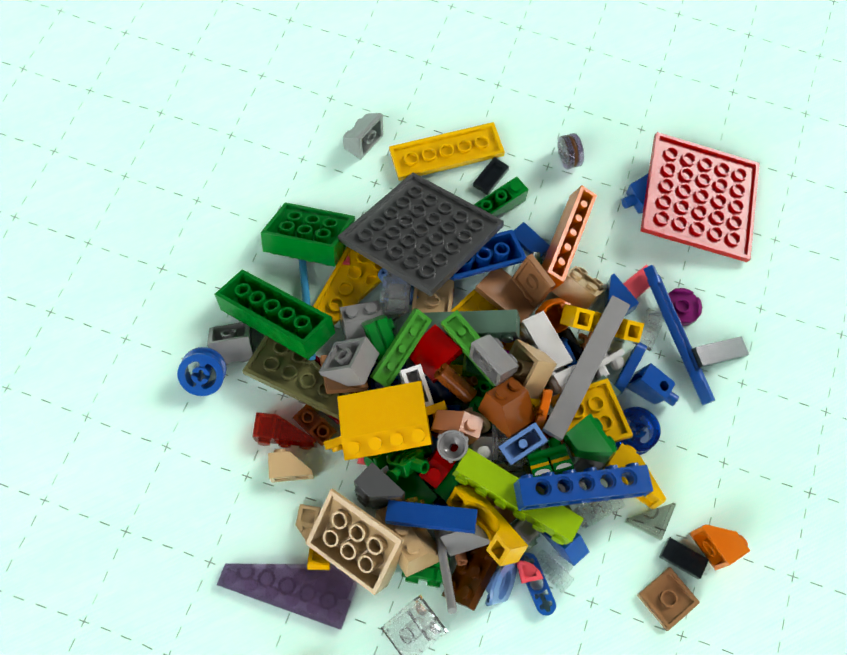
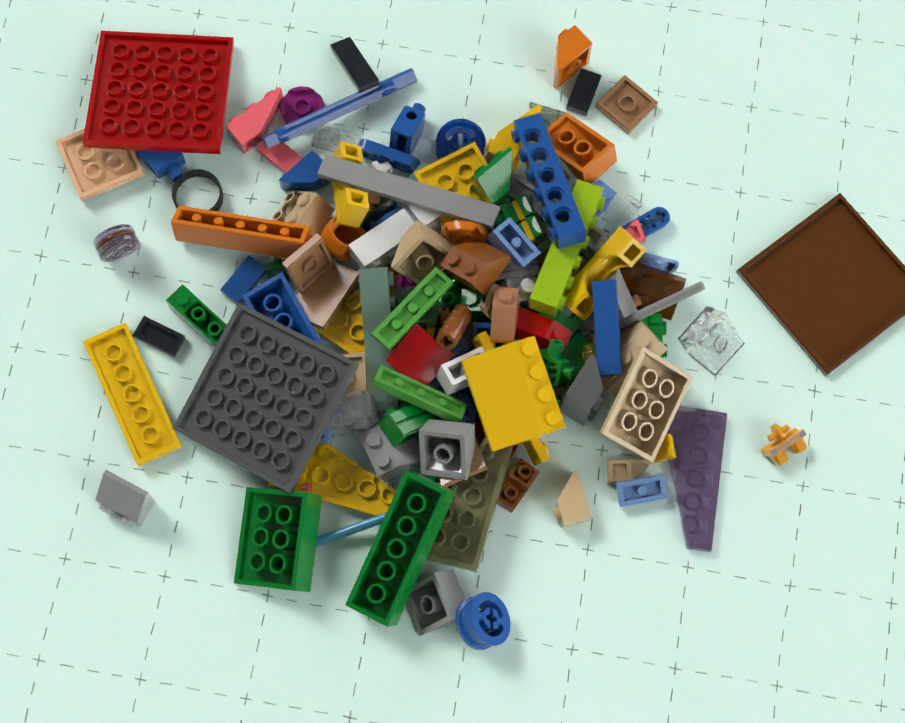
camera: 100 degrees left, 5 degrees up
(277, 430) = (532, 525): clear red slope -> none
(285, 531) = (641, 490): none -> medium blue plate
(451, 438) = (537, 308): light grey piece -> none
(493, 359) = (430, 281): light grey slope -> none
(617, 202) = (197, 173): none -> black tyre
(622, 537) = (581, 148): none -> orange slope
(635, 148) = (97, 168): none -> light nougat plate
(671, 266) = (254, 123): none -> coral slope

